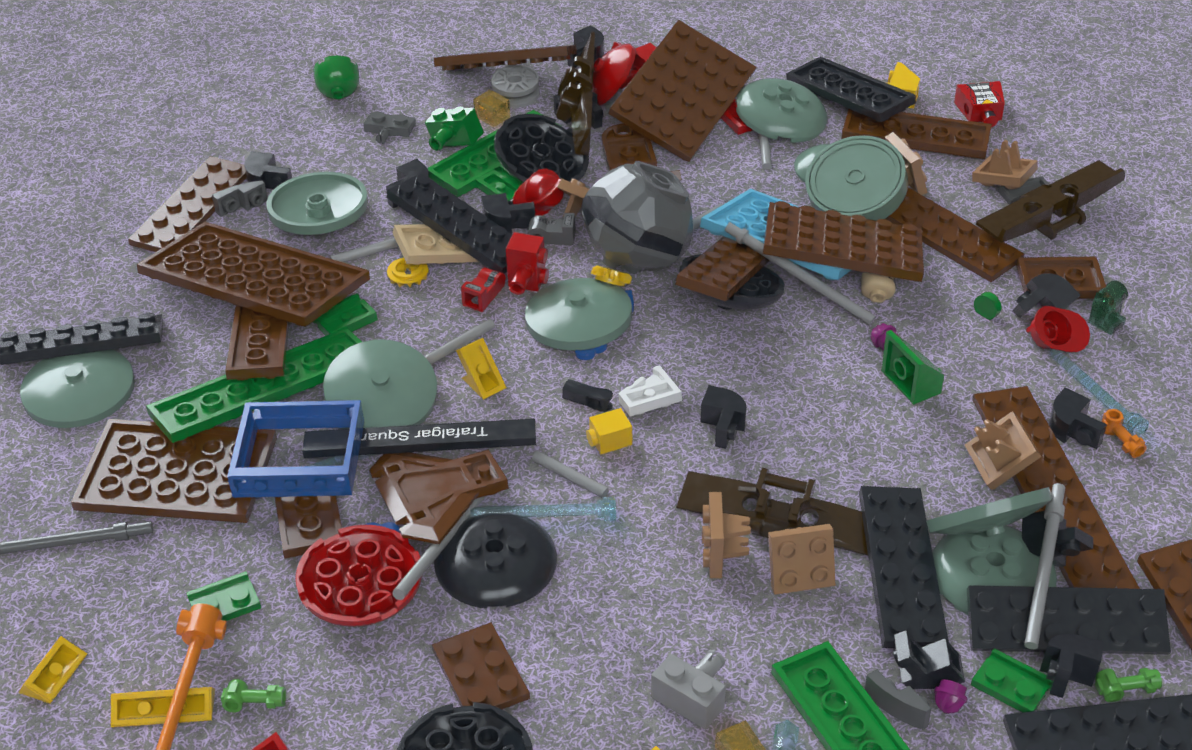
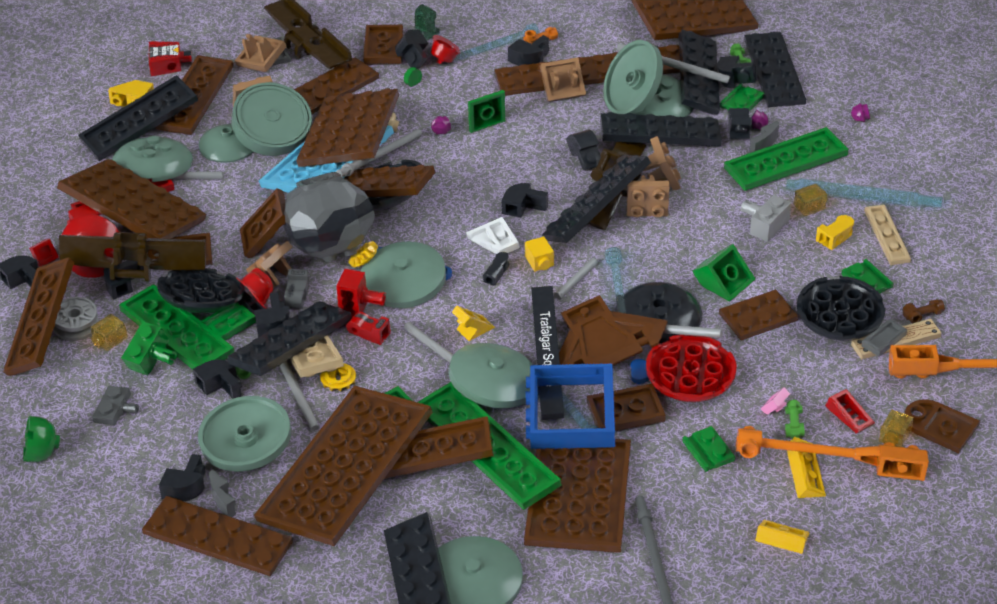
camera: 90 degrees left, 0 degrees up
(287, 674) = (776, 401): none -> bright pink plate
(557, 627) = (724, 273): none -> green slope
(702, 471) = (596, 198): none -> black plate
(842, 470) = (585, 147): none -> black brick

